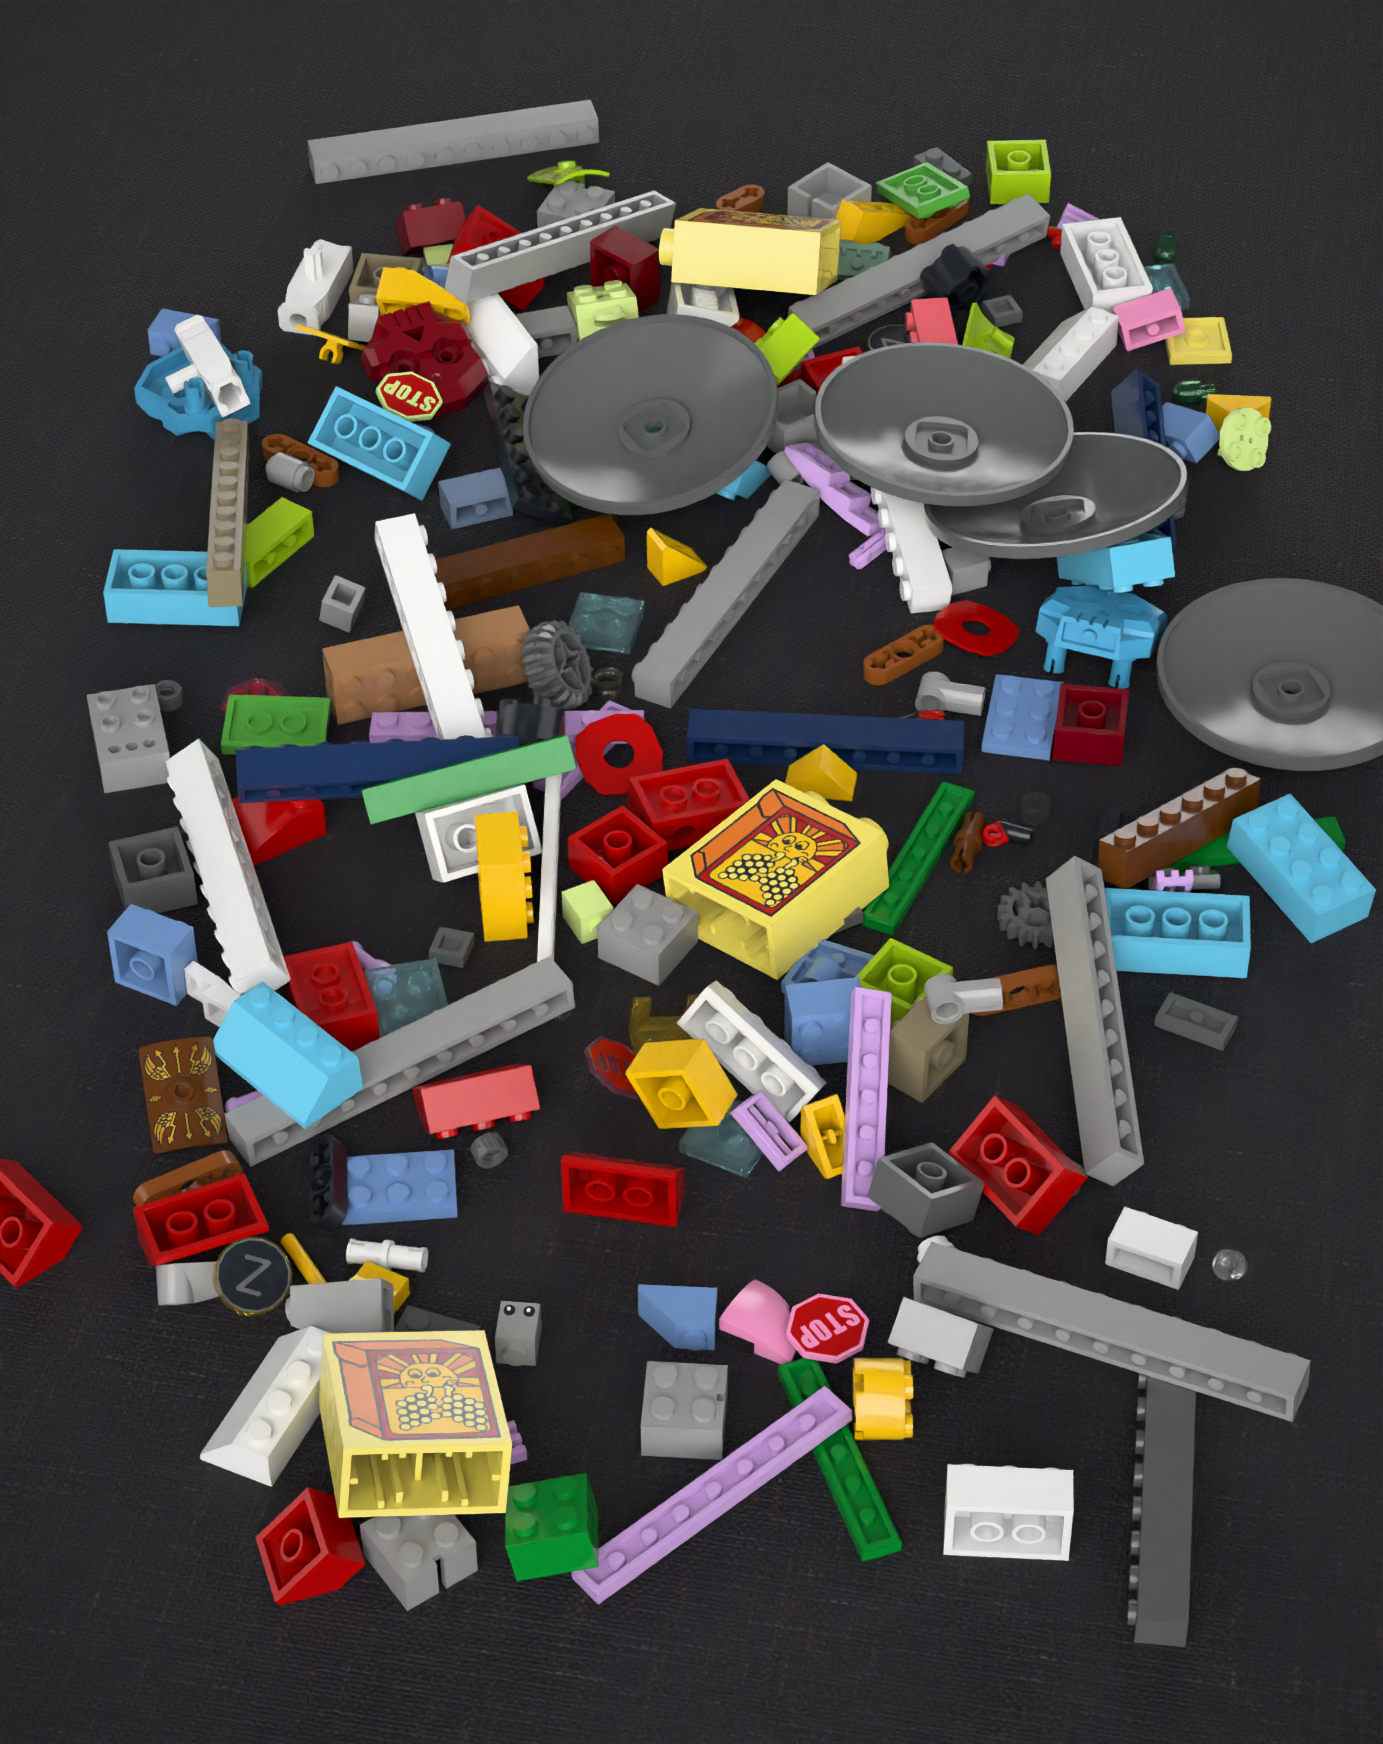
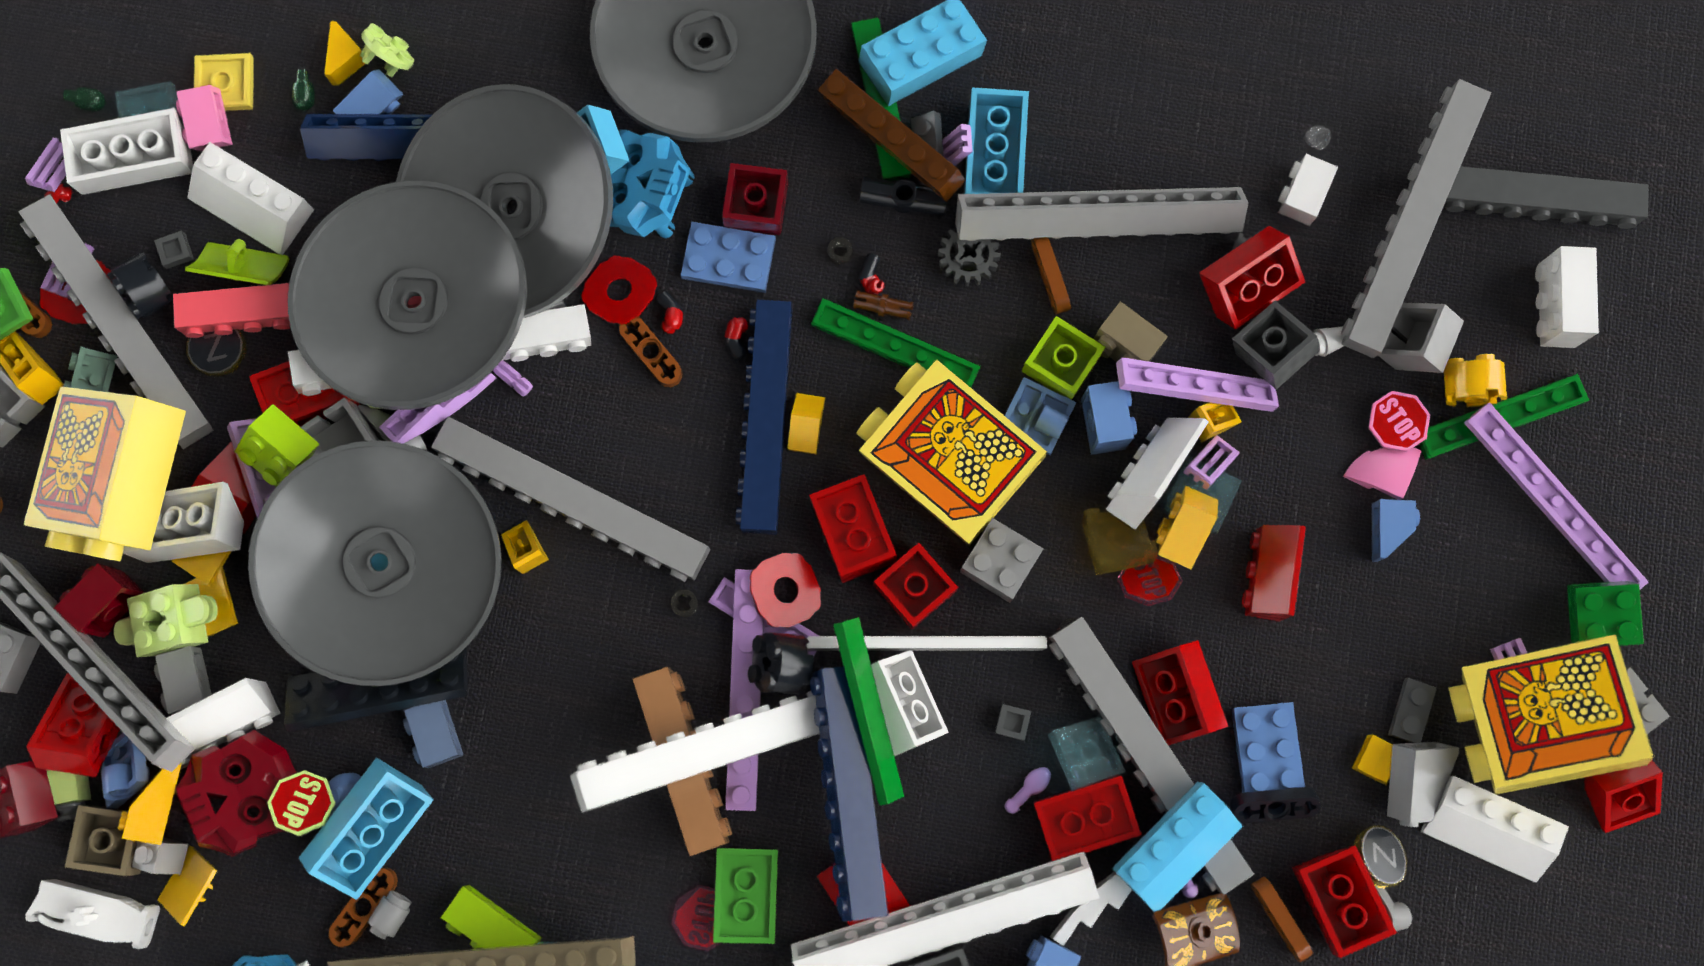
camera: 90 degrees left, 35 degrees up
(302, 1259) = (1356, 813): yellow bar -> none
(342, 603) = (591, 847): light grey brick -> none
(387, 1255) = (1343, 753): white pin -> none
(489, 1150) = (1234, 679): dark grey axle -> none
(502, 877) = (965, 678): yellow brick -> none
(518, 1333) = (1417, 648): light grey brick -> none
(530, 560) = (528, 685): reddish brown brick -> none
(557, 664) = (692, 644): dark grey gear -> none
(585, 910) = (974, 610): yellowish green brick -> none
(607, 621) = (603, 608): clear light blue plate -> none
(684, 1410) = (1482, 523): light grey piece -> none
(941, 694) = (708, 321): light grey piece -> none
(952, 999) = (1123, 309): light grey piece -> none
(953, 670) = (673, 313): none -> red arm
(1196, 1021) = (1078, 143): dark grey plate -> none

